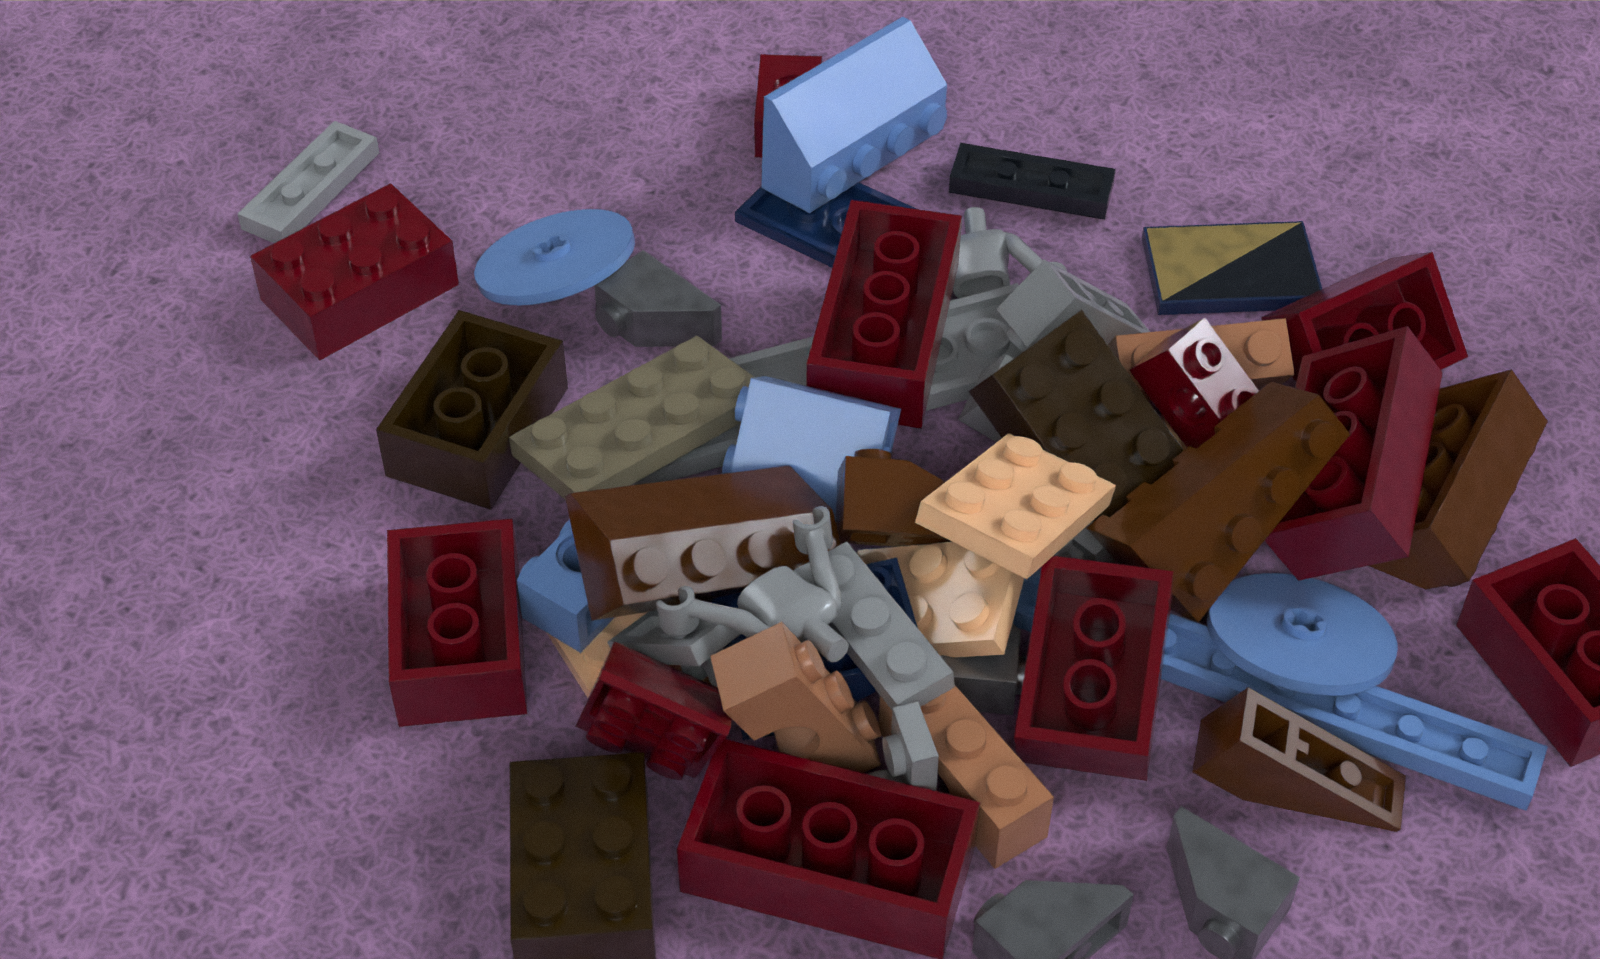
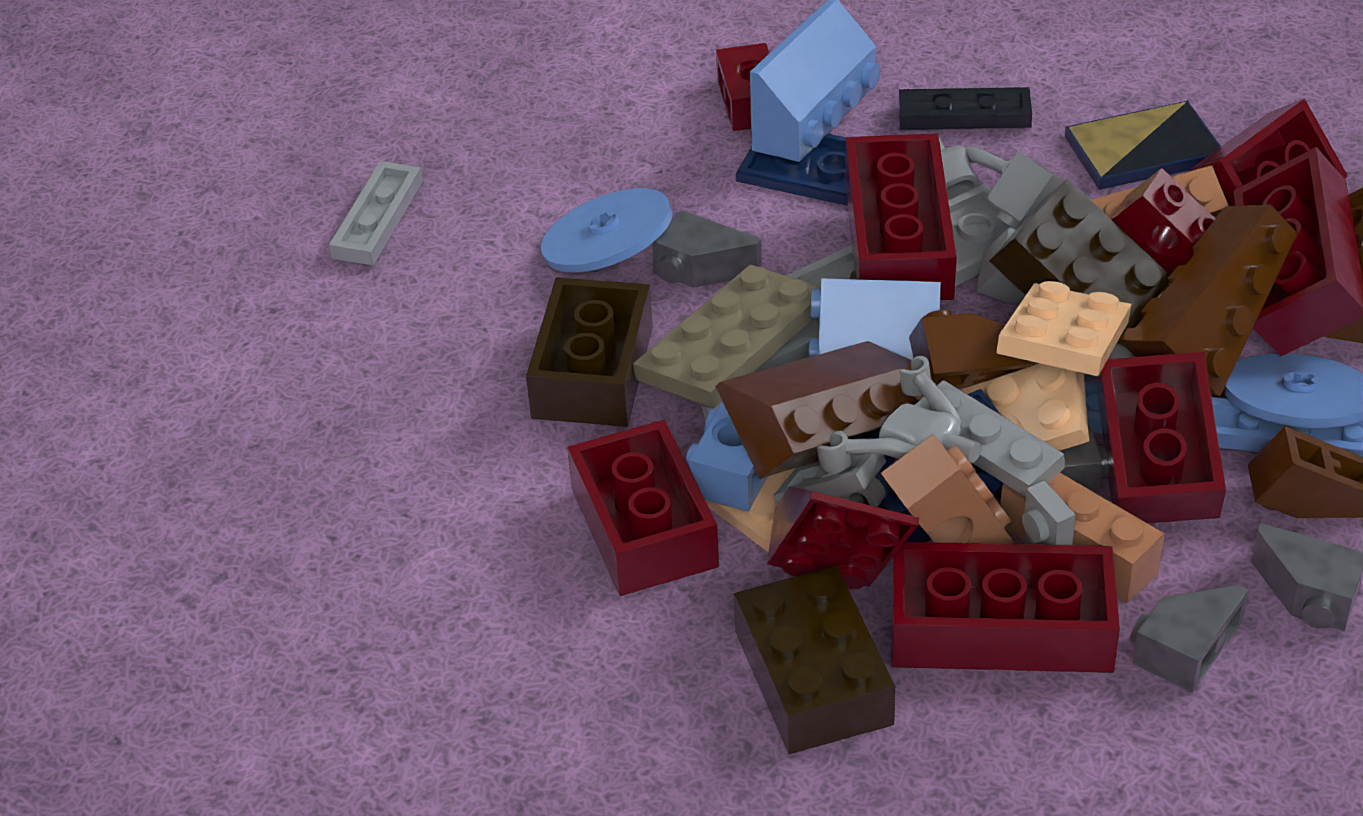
camera: 10 degrees left, 5 degrees down
(355, 270) = (446, 269): dark red brick -> none

